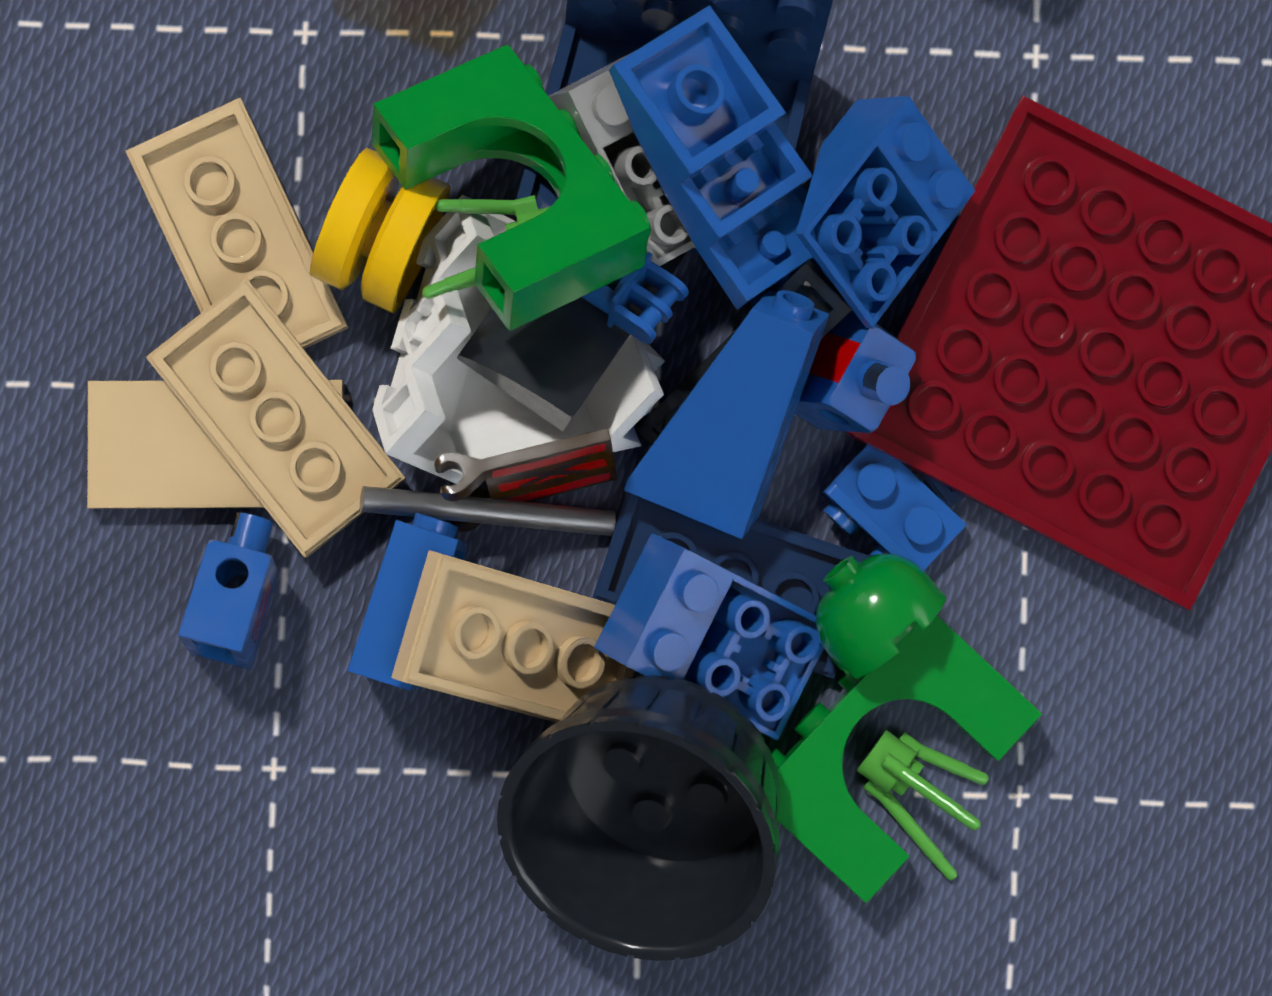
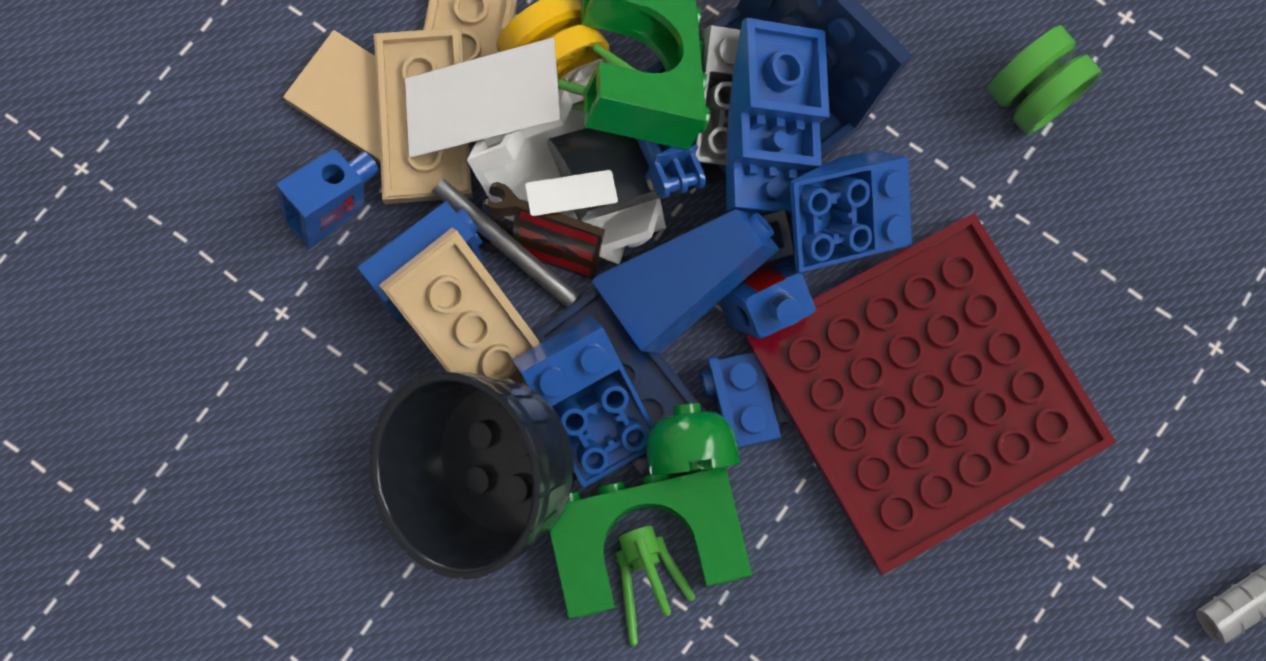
camera: 30 degrees right, 10 degrees down
(347, 361) = (482, 98): none -> white sticker
(537, 410) = (571, 193): none -> white sticker

